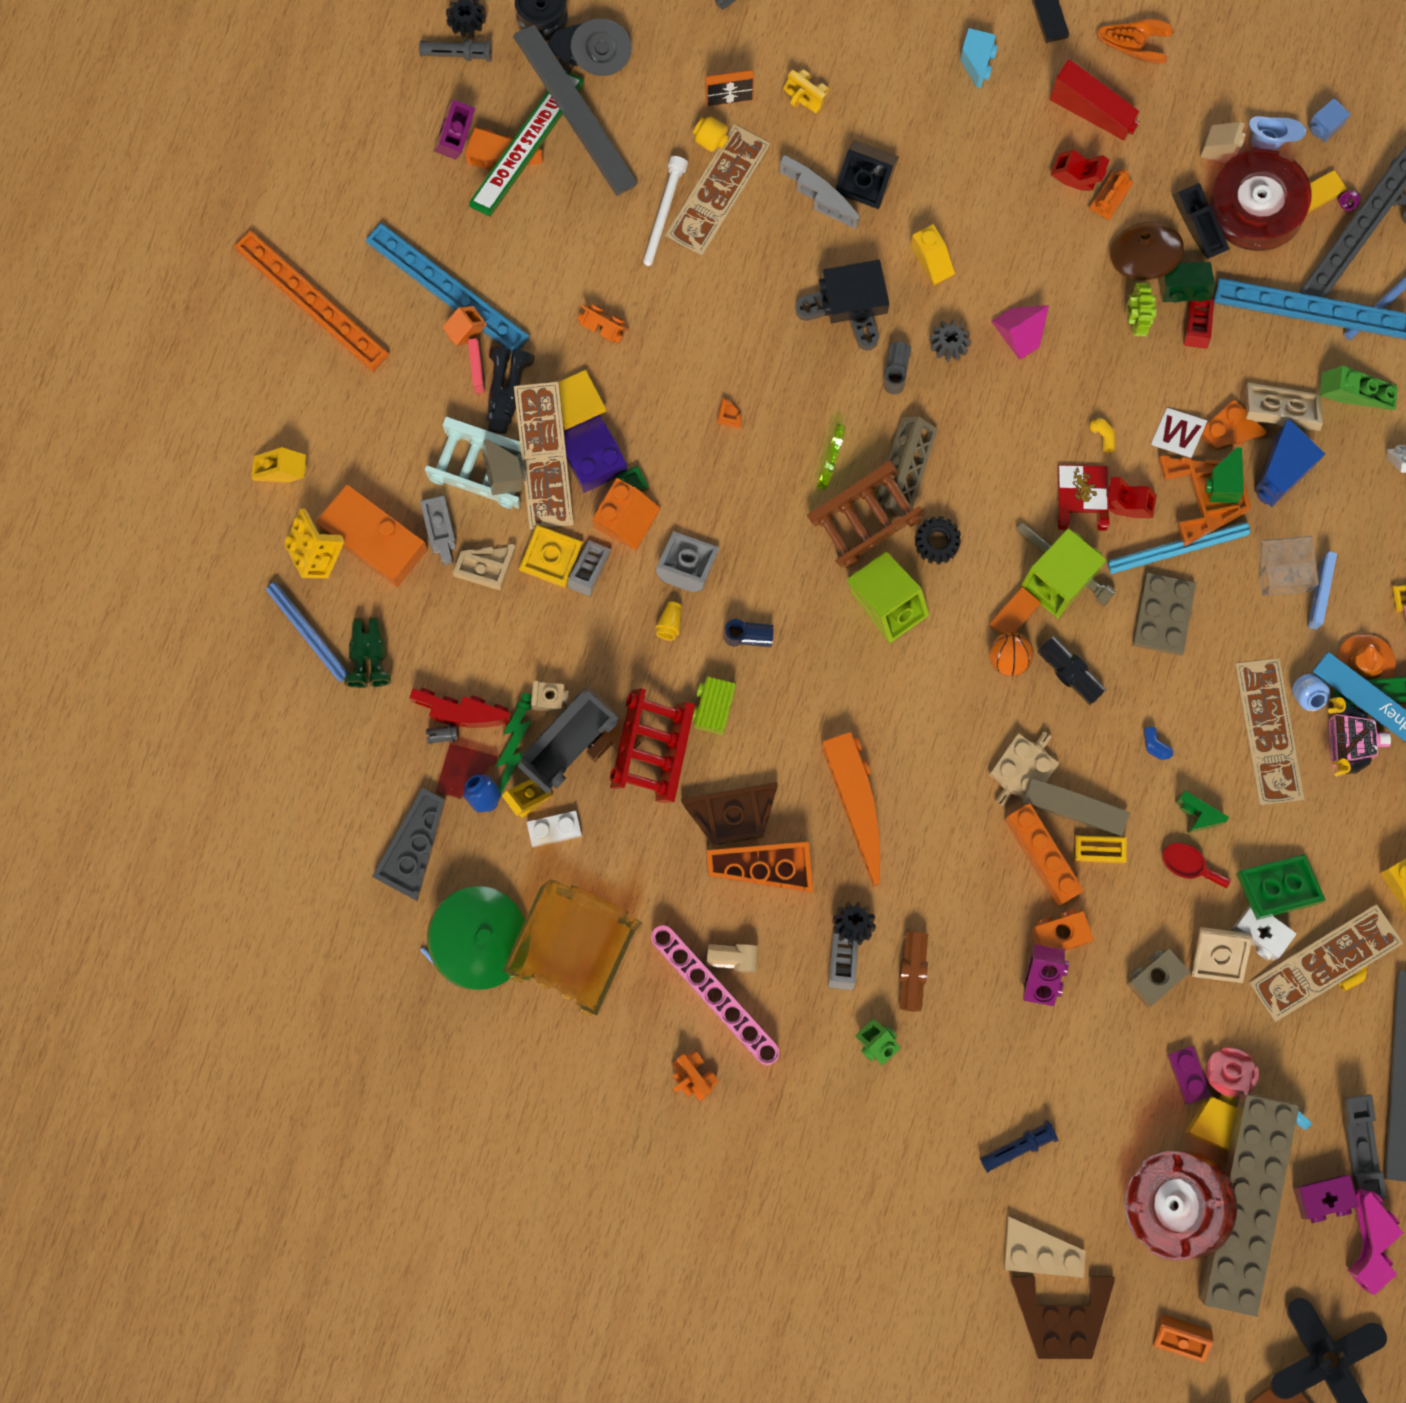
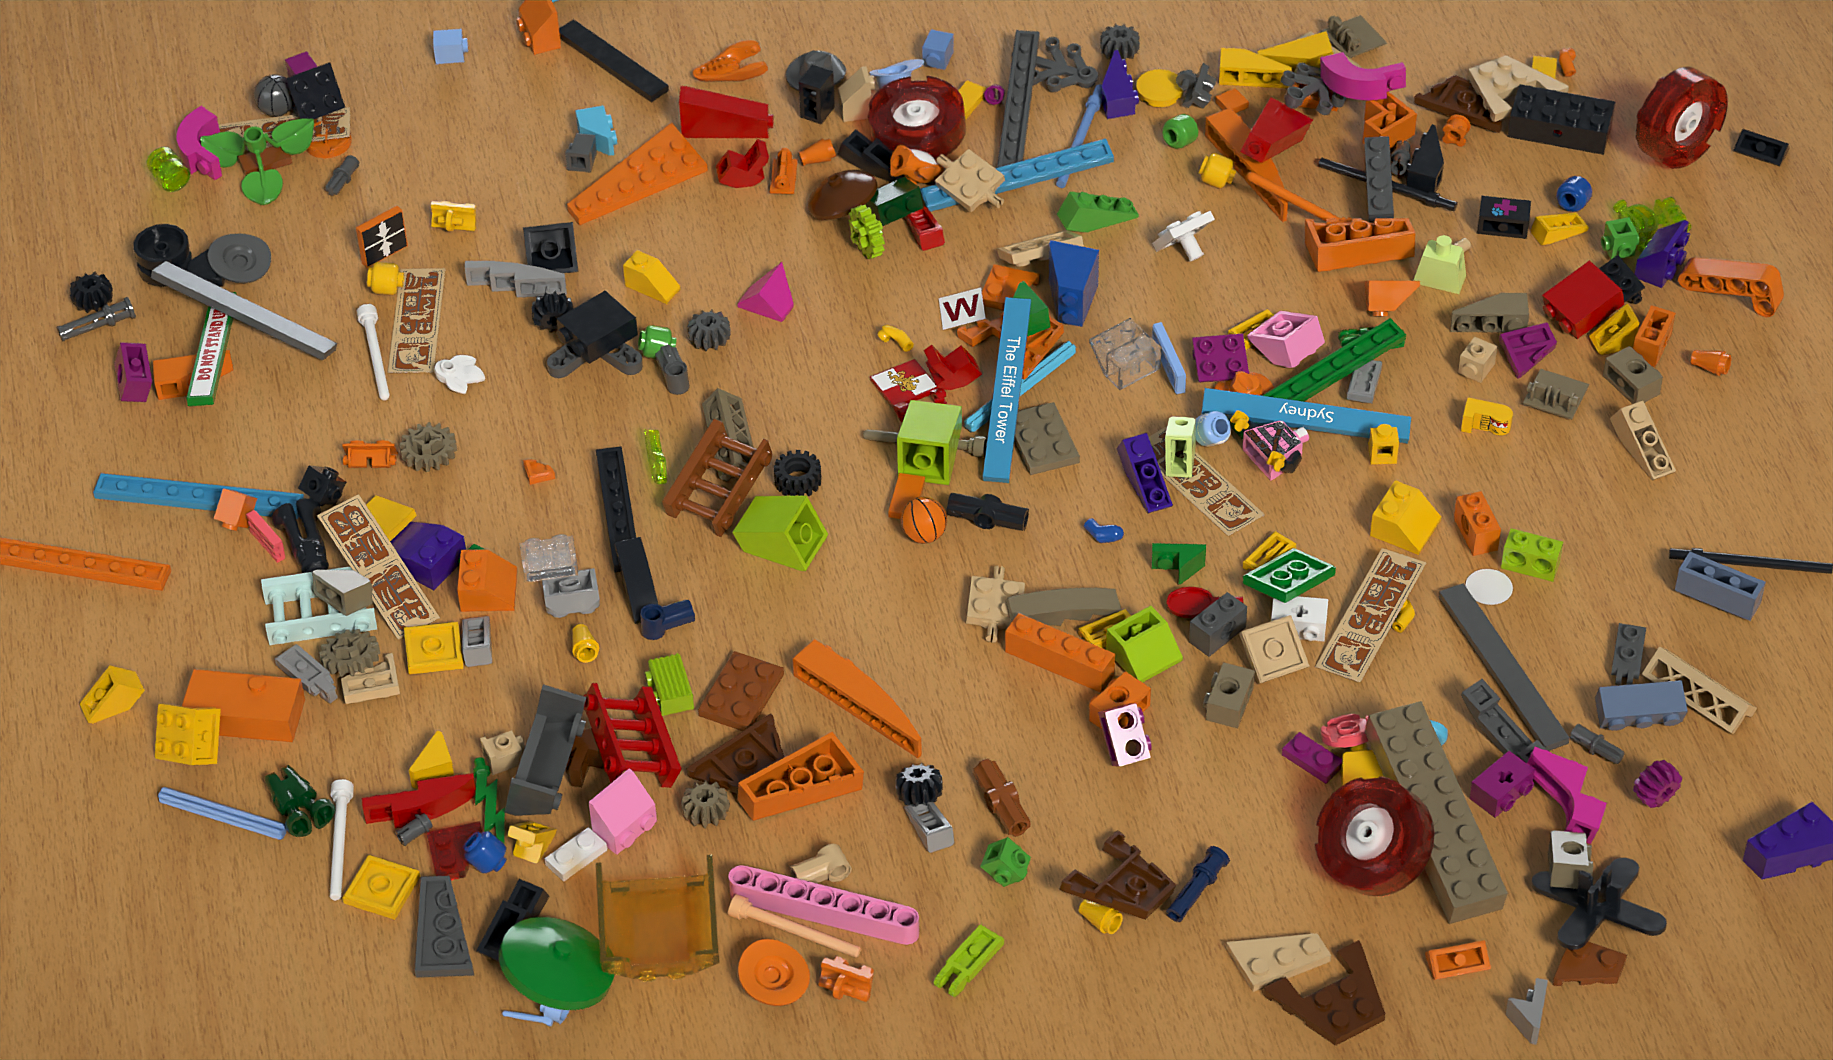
camera: 30 degrees left, 30 degrees down
(391, 774) = (381, 887): none -> yellow tile
(404, 668) = (341, 794): none -> white piece
(471, 869) = (524, 903): none -> black slope
(490, 678) = (432, 762): none -> yellow slope
(492, 529) = (349, 652): none -> dark tan gear
(545, 338) = (322, 485): none -> black brick
(605, 820) = (622, 812): none -> bright pink slope
(639, 1042) = (773, 972): none -> orange hat
(652, 961) = (742, 908): none -> light nougat piece
(655, 332) = (428, 447): none -> dark tan gear
(679, 850) = (705, 804): none -> dark tan gear
(682, 527) = (548, 558): none -> clear slope
(724, 272) = (459, 372): none -> white plate
(744, 583) = (635, 575): none -> black slope
(769, 741) = (741, 691): none -> dark orange plate
(771, 495) = (615, 497): none -> black plate
(800, 1112) = (969, 959): none -> lime hinge
(828, 250) = (549, 308): none -> black gear
(898, 329) = (653, 338): none -> bright green head
(925, 1132) = (1102, 917): none -> yellow cone
(951, 76) = (581, 153): none -> dark grey brick
(965, 1125) = (1131, 888): none -> reddish brown wing
(1000, 125) = (648, 170): none -> orange wing
(1116, 889) = (1143, 644): none -> lime slope
(1155, 185) = (818, 152): none -> orange cone
(1160, 555) = (1007, 390): none -> dark azure tile
(1188, 121) = (816, 94): none -> black brick
(1191, 900) = (1218, 624): none -> dark grey brick
(1207, 85) = (819, 58): none -> dark grey hat
(1226, 705) = (1144, 472): none -> dark purple slope
(1228, 254) = (915, 165): none -> orange animal
(1261, 855) = (1285, 544): none -> yellow tile
(1266, 297) = (970, 180): none -> tan plate
(1274, 695) = (1180, 437): none -> yellowish green torso
(1318, 1314) = (1566, 857): none -> dark tan brick
(1366, 616) = (1219, 357): none -> magenta hinge

